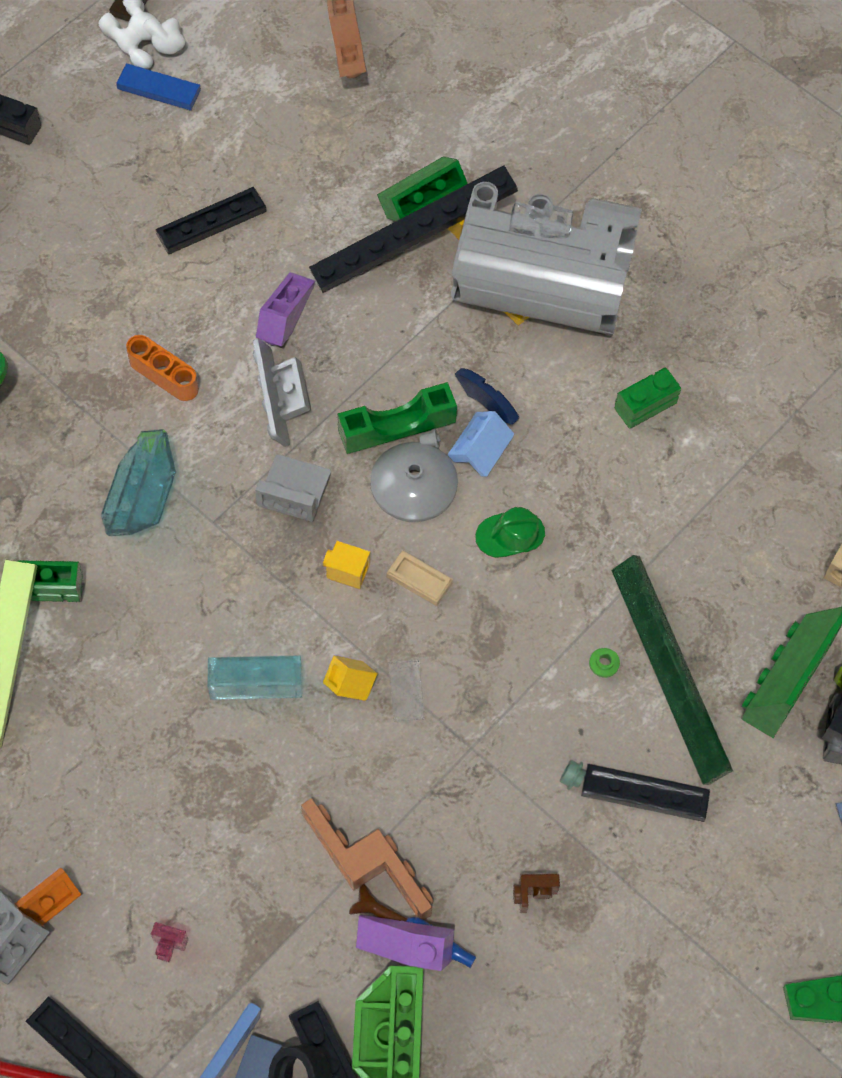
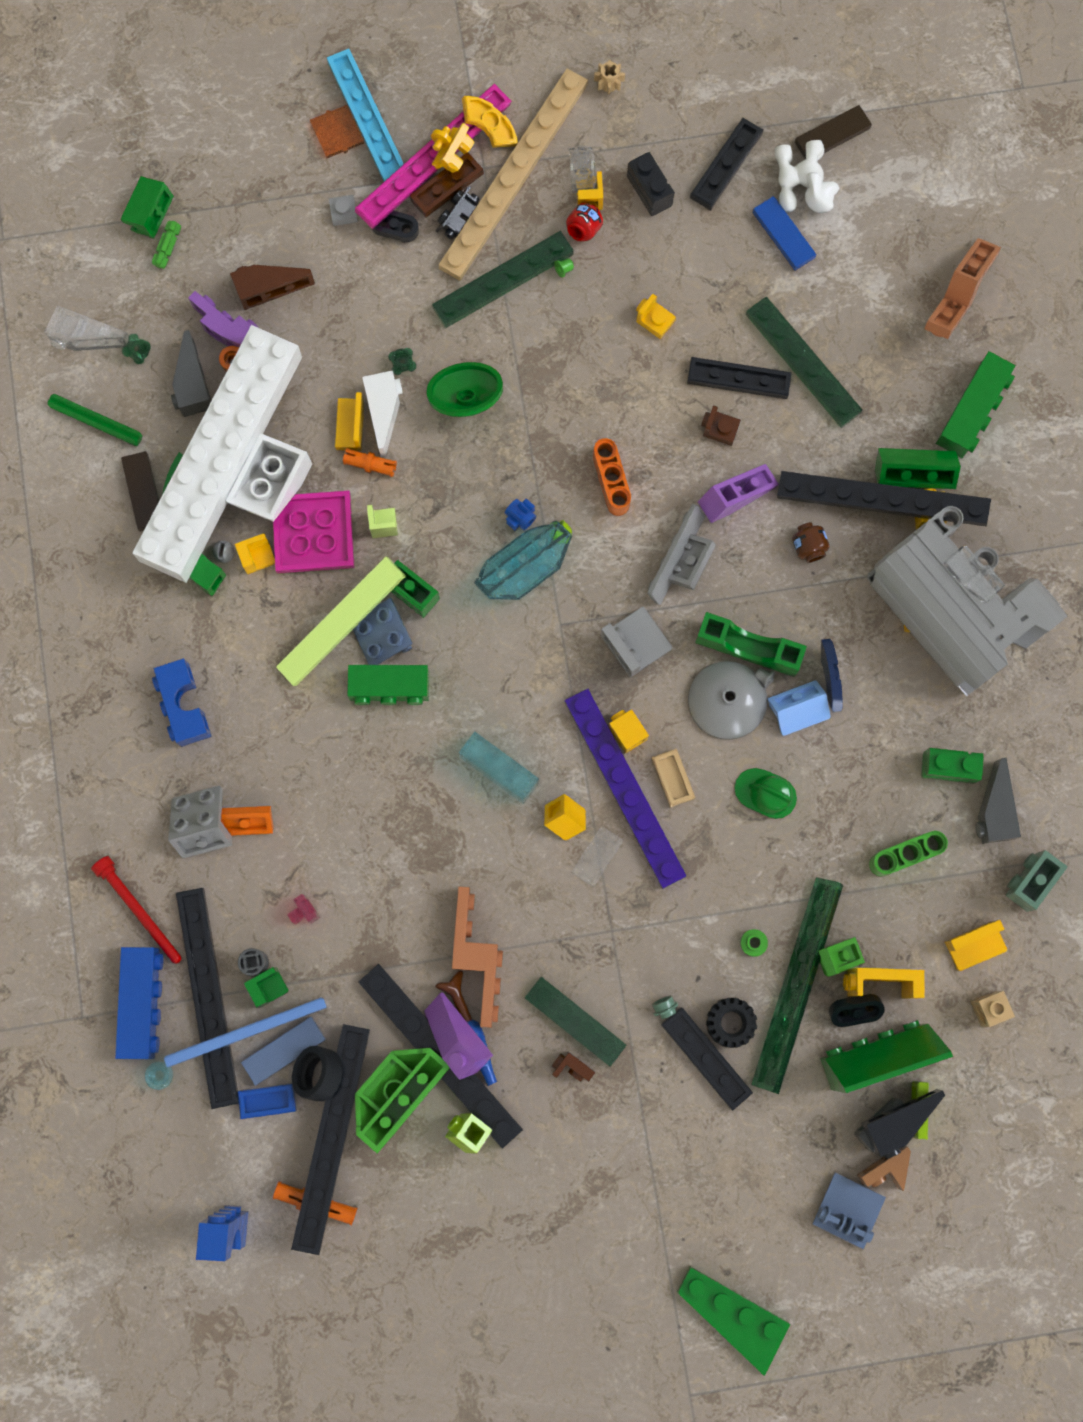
camera: 40 degrees right, 15 degrees up
(51, 640) = (382, 633): none -> sand blue hinge
(64, 65) = (726, 164): none -> black tile
(91, 679) = (388, 684): none -> green brick
(96, 219) = (654, 316): none -> yellow bracket
(103, 452) = (520, 514): none -> blue gear
(156, 1032) = (257, 962): none -> dark grey wheel
(185, 1040) = (266, 987): none -> green panel
(226, 267) = (720, 426): none -> reddish brown bracket
(257, 173) = (804, 362): none -> clear green plate
(364, 968) = (417, 1030): none -> black plate
(381, 306) = (810, 542): none -> reddish brown head
(384, 617) = (625, 789): none -> dark purple plate
(429, 111) = (975, 405): none -> green brick
(487, 1020) = (468, 1132): none -> lime brick
(503, 849) = (575, 1021): none -> clear green plate
(641, 726) = (748, 1022): none -> black tyre
(668, 505) = (919, 847): none -> bright green beam
(687, 620) = (840, 957): none -> bright green slope
(716, 409) = (998, 811): none -> dark grey slope
(736, 656) = (856, 1010): none -> black plate
(760, 589) = (911, 980): none -> yellow panel
(789, 527) = (977, 945): none -> yellow panel
(792, 438) = (1036, 880): none -> sand green brick

